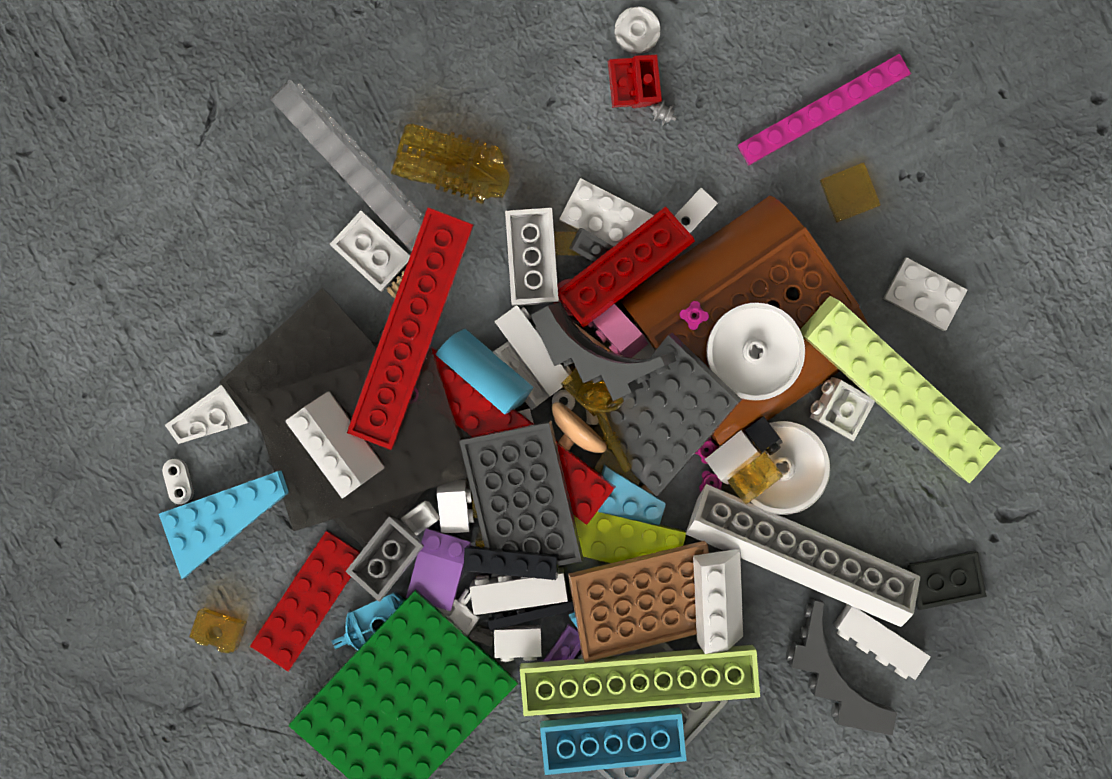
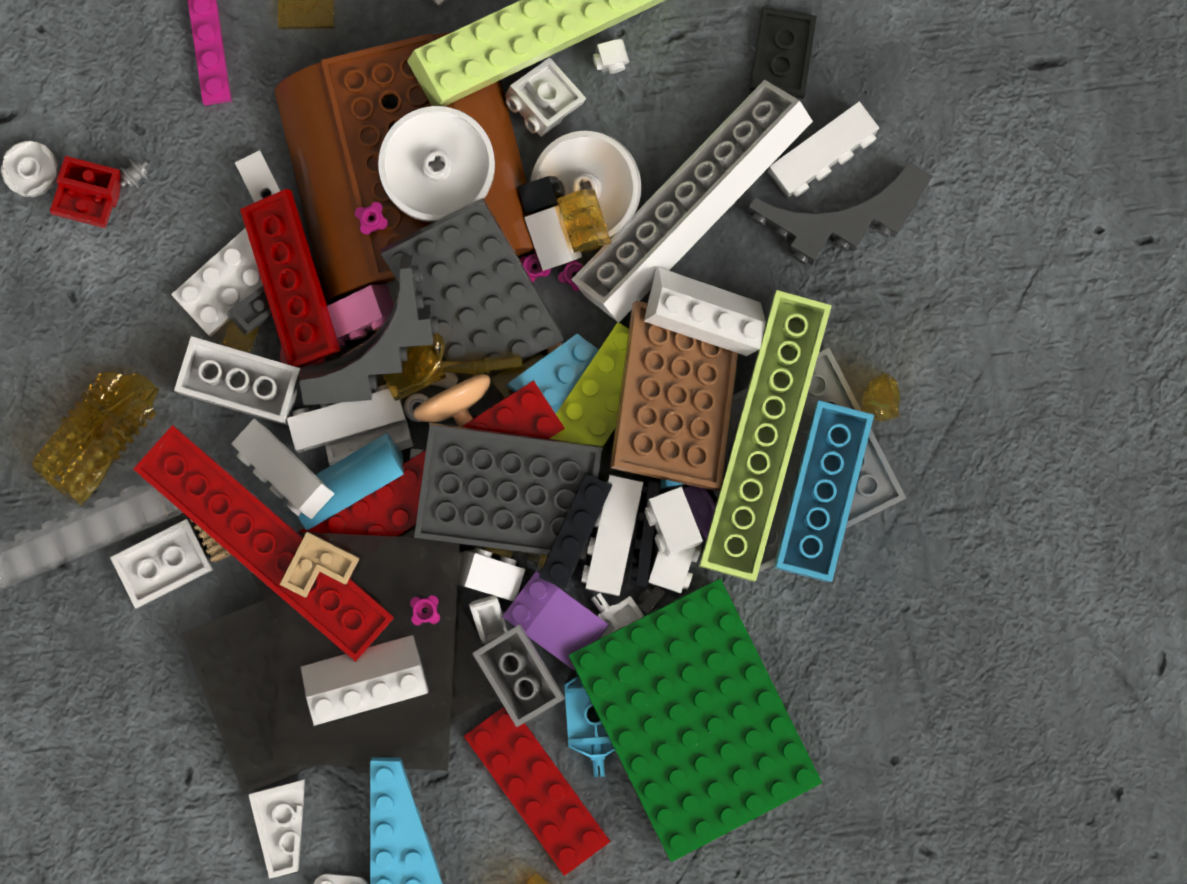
camera: 70 degrees left, 5 degrees down
(400, 467) = (418, 615): none -> dark pink plate
(413, 374) = (314, 557): none -> tan plate
(475, 317) = (282, 469): none -> white brick
(544, 636) = (673, 522): none -> white brick
(702, 757) = (882, 398): none -> clear yellow hair
(893, 448) = (611, 56): none -> white plate

